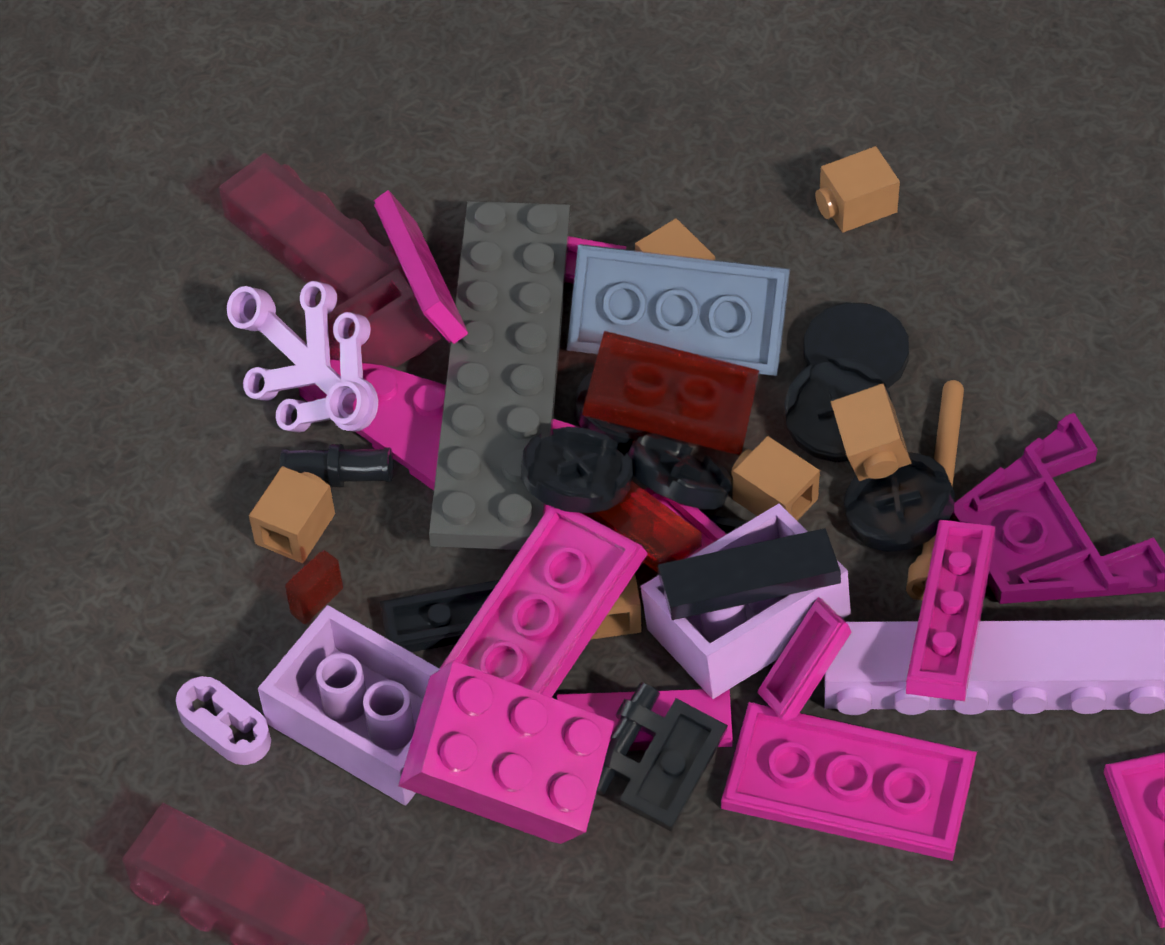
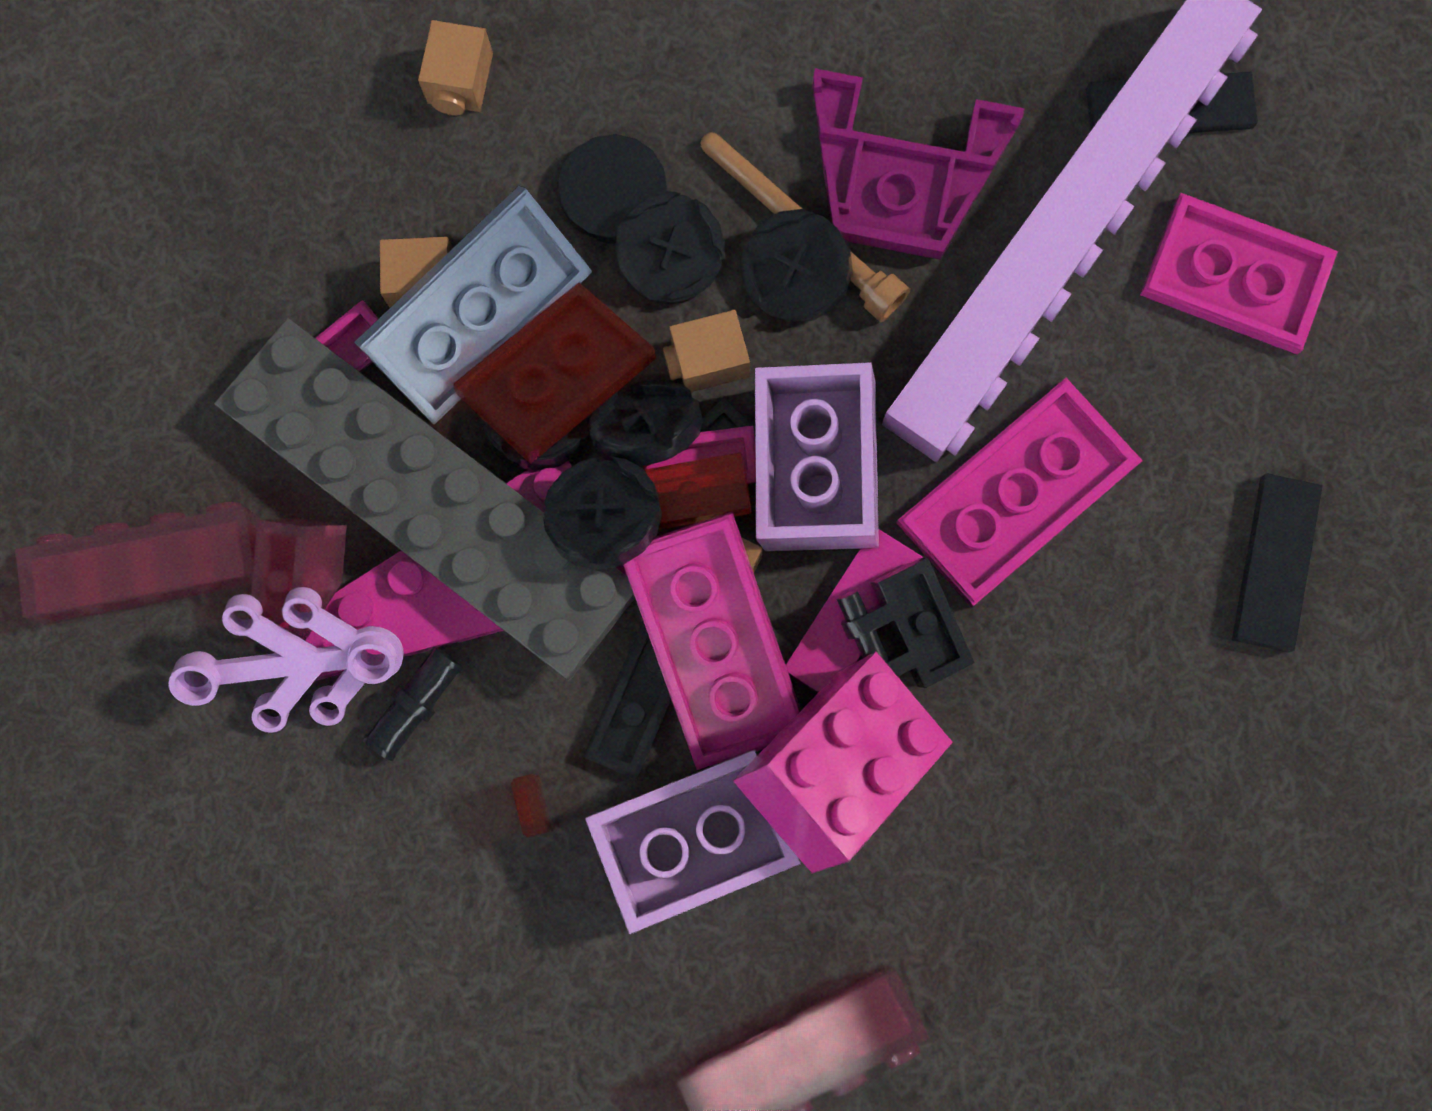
camera: 55 degrees left, 25 degrees up
(216, 729) = (612, 980): lavender beam -> none
(292, 514) = (439, 774): medium nougat brick -> none
(420, 268) = (263, 496): dark pink tile -> none
(749, 574) = (820, 444): black tile -> none
(804, 660) = (909, 453): dark pink tile -> none
(871, 433) = (734, 242): medium nougat brick -> none
(951, 611) = (954, 306): dark pink tile -> none

